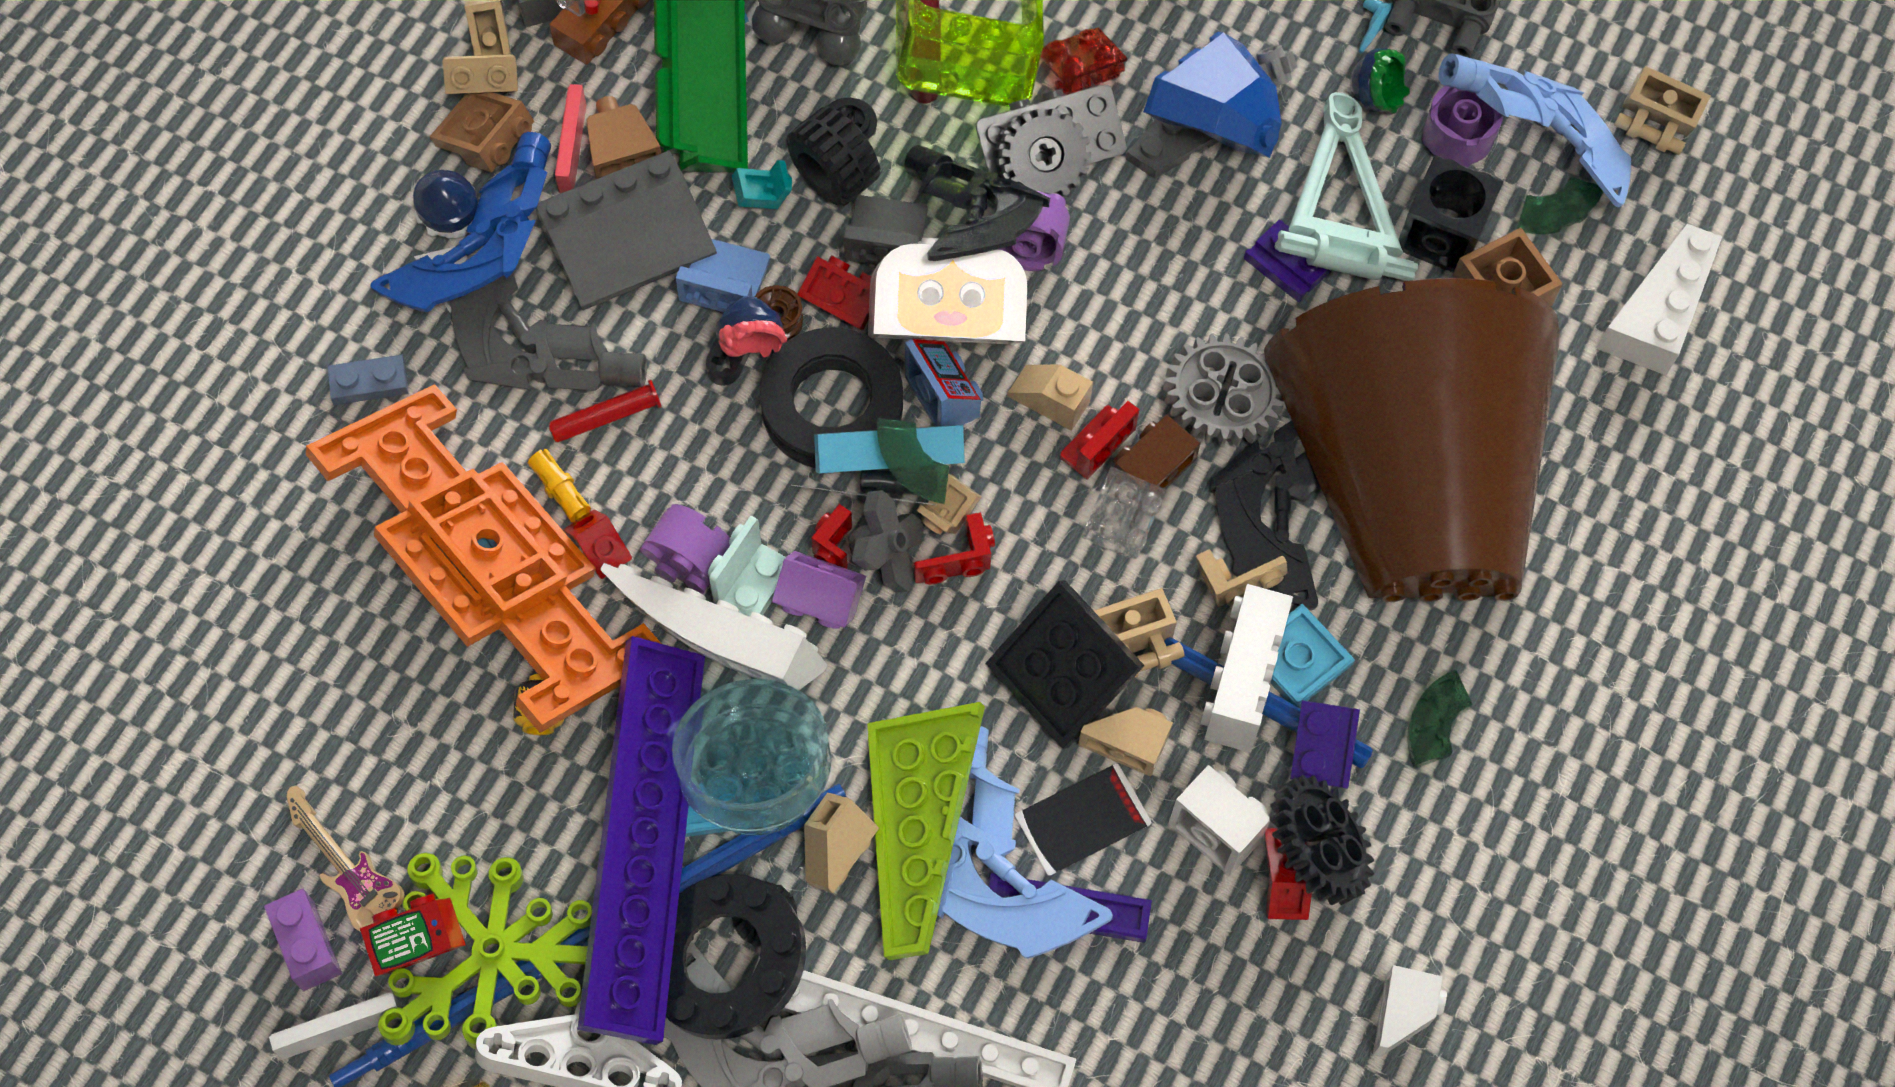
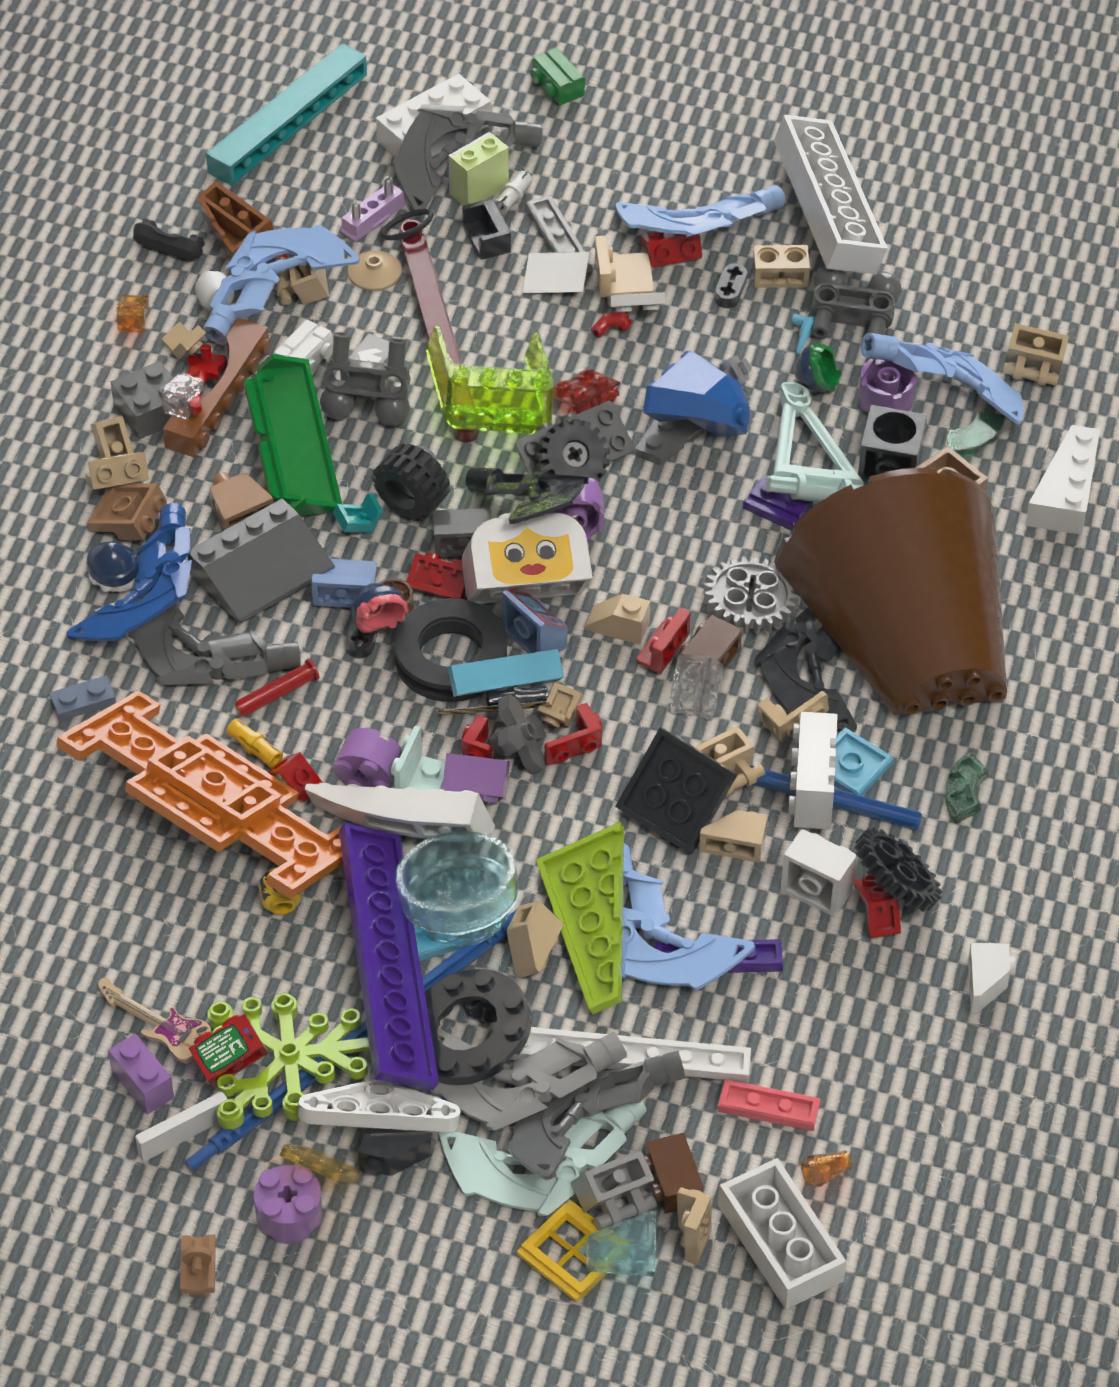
camera: 10 degrees left, 15 degrees down
(570, 138) = (198, 504): coral tile -> none
(909, 462) = (524, 676): clear green tile -> none
(1083, 819) = (715, 898): black sticker -> none
(1325, 743) = (886, 808): dark purple plate -> none

